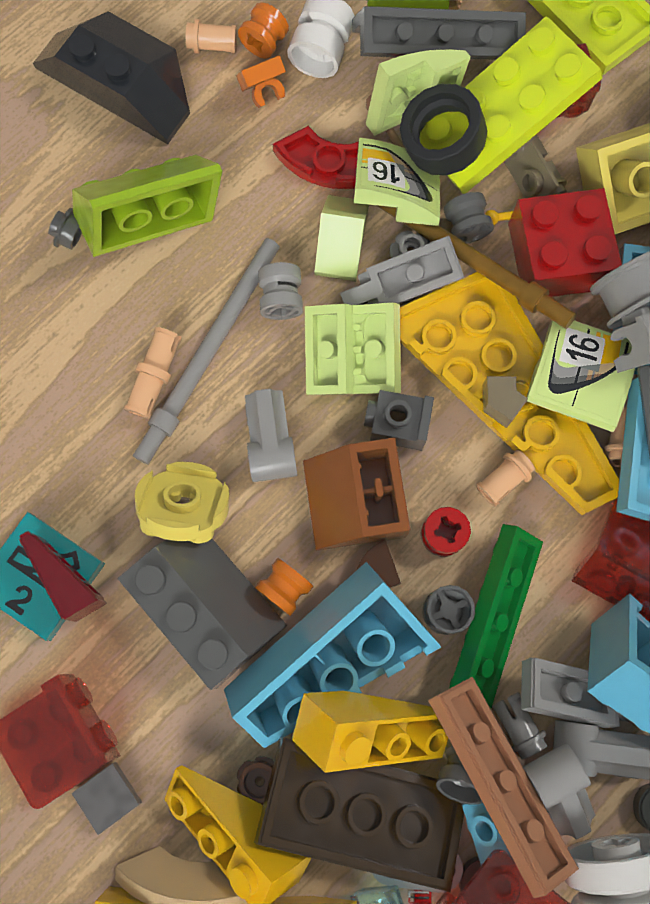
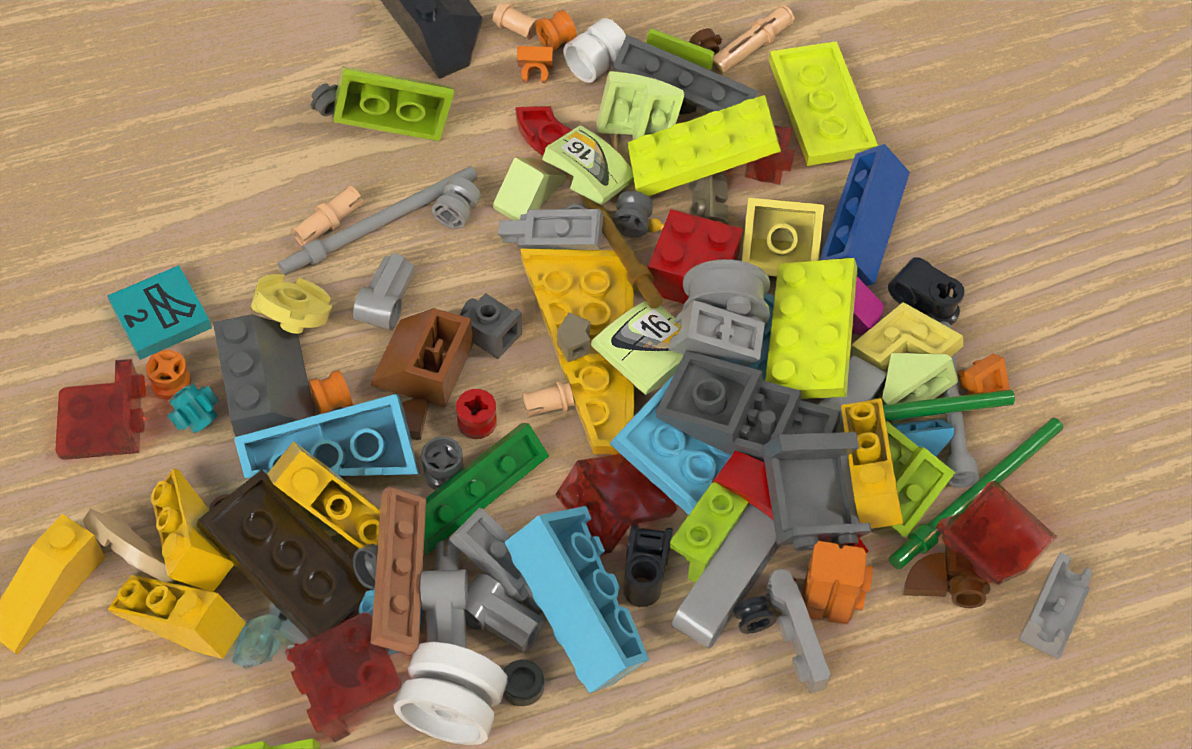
camera: 25 degrees right, 20 degrees down
(66, 587) = (172, 314): dark red slope -> none
(88, 648) = (169, 364): none -> orange wheel
(106, 798) = (111, 474): flat silver tile -> none
(151, 681) = (193, 408): none -> teal gear
(352, 349) = (485, 261): yellowish green slope -> none
(435, 102) = (635, 123): black tyre -> none

